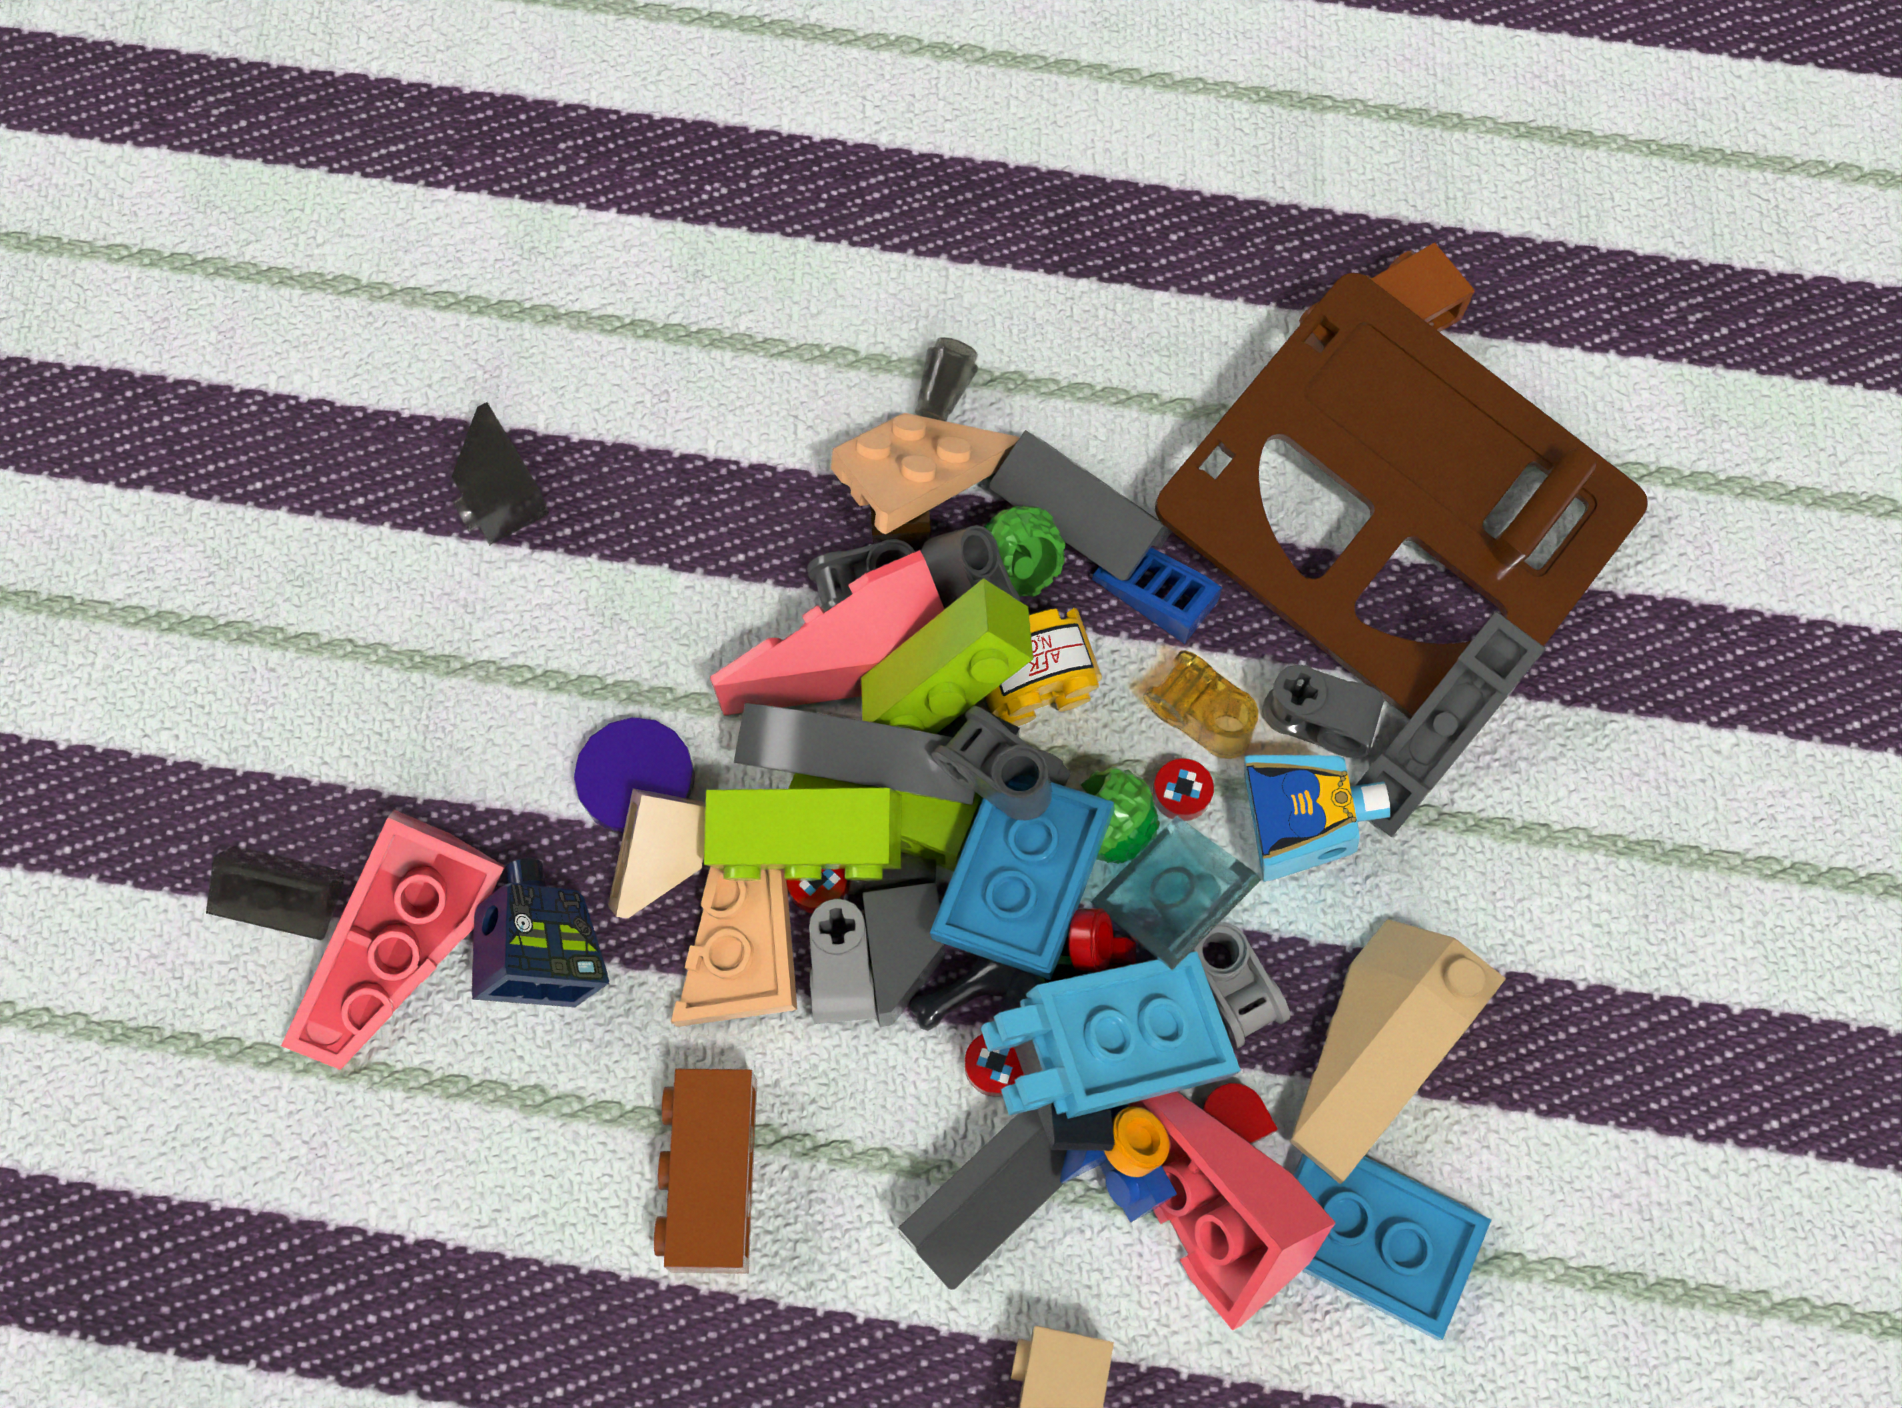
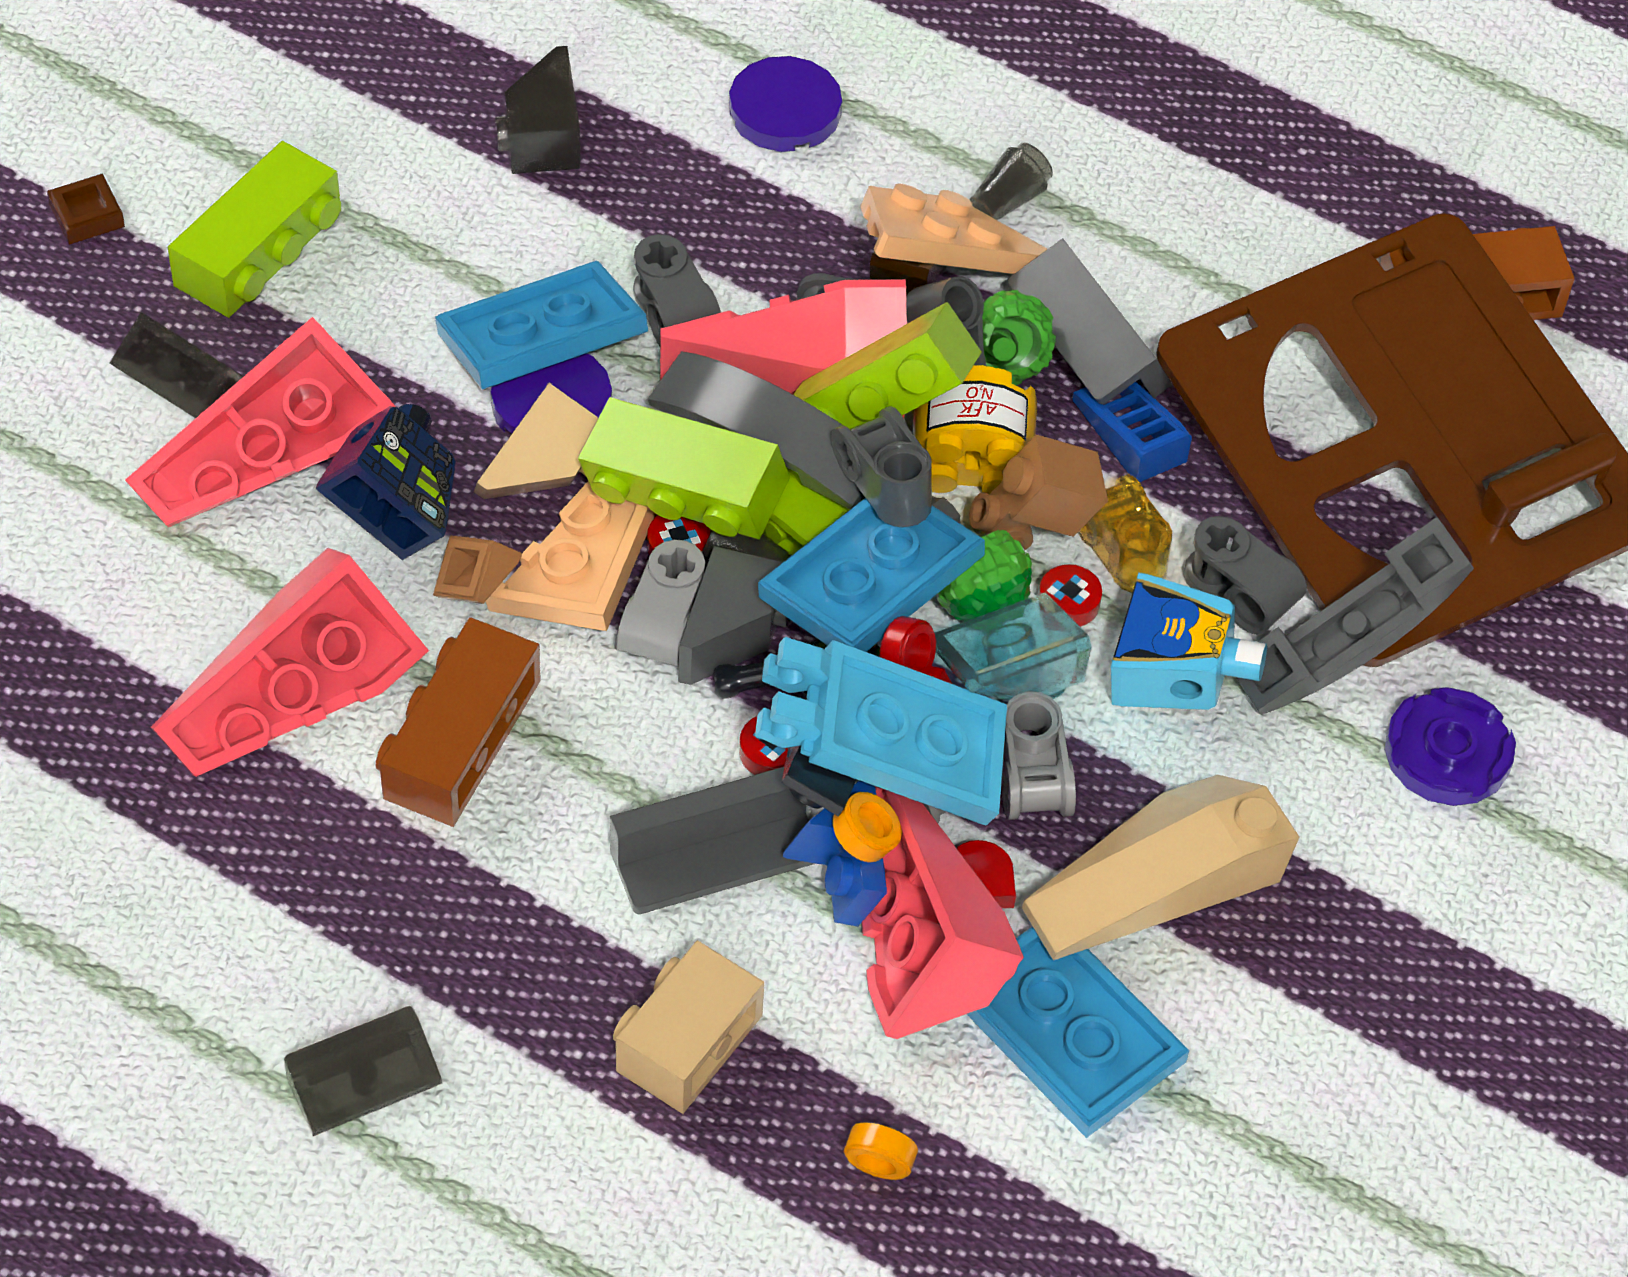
camera: 20 degrees right, 15 degrees down
(106, 752) = (85, 209): none -> reddish brown tile
(281, 714) = (255, 229): none -> lime brick
(531, 1166) = (303, 656): none -> coral wedge
(593, 708) = (540, 324): none -> dark azure tile
(650, 999) = (474, 569): none -> medium nougat slope
(705, 372) = (785, 103): none -> dark purple tile
(706, 630) = (669, 284): none -> dark grey piece
(1125, 710) = (1043, 487): none -> medium nougat brick
(1564, 802) = (1450, 746): none -> dark purple tile

